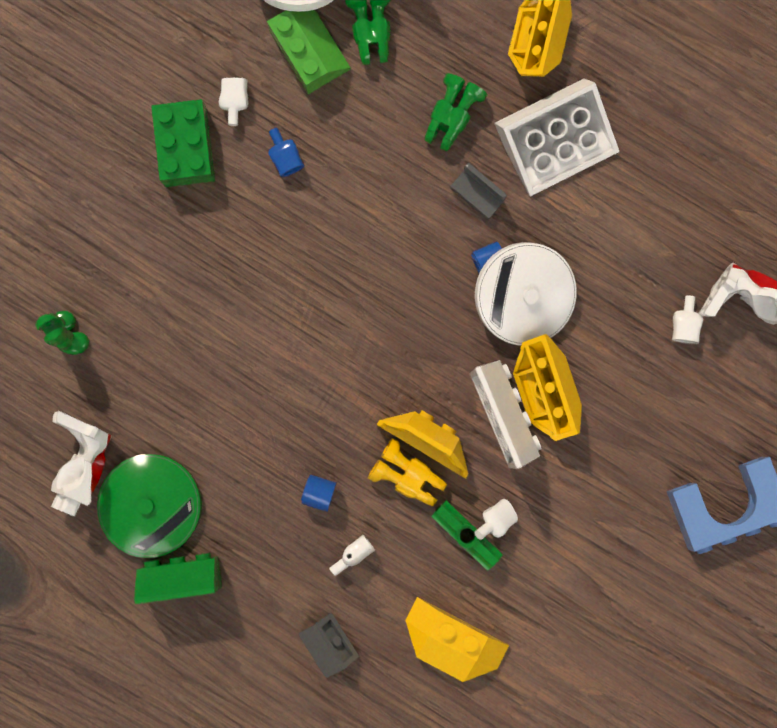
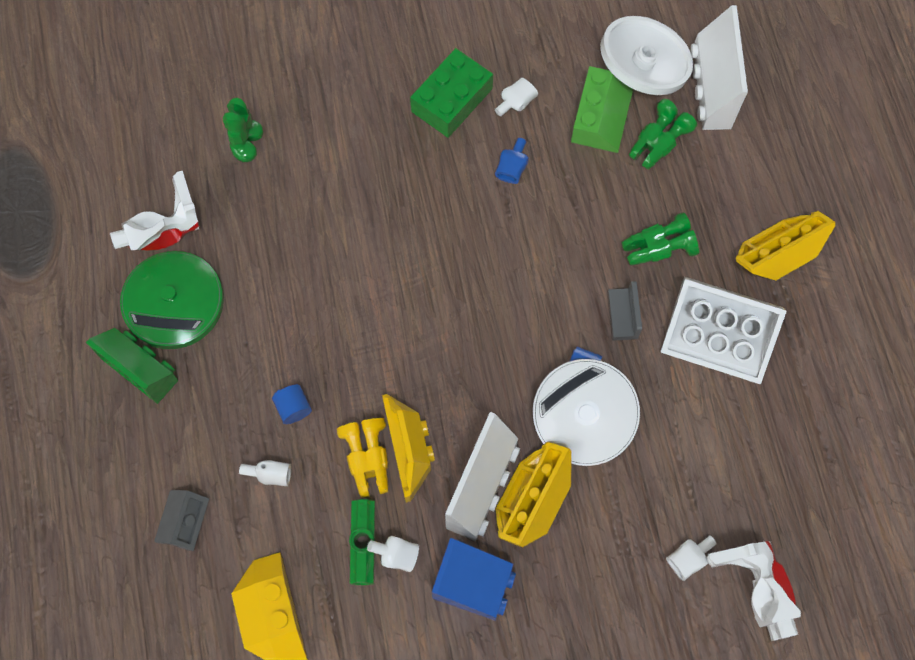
camera: 45 degrees right, 15 degrees down
(566, 486) = (473, 580): none -> blue slope

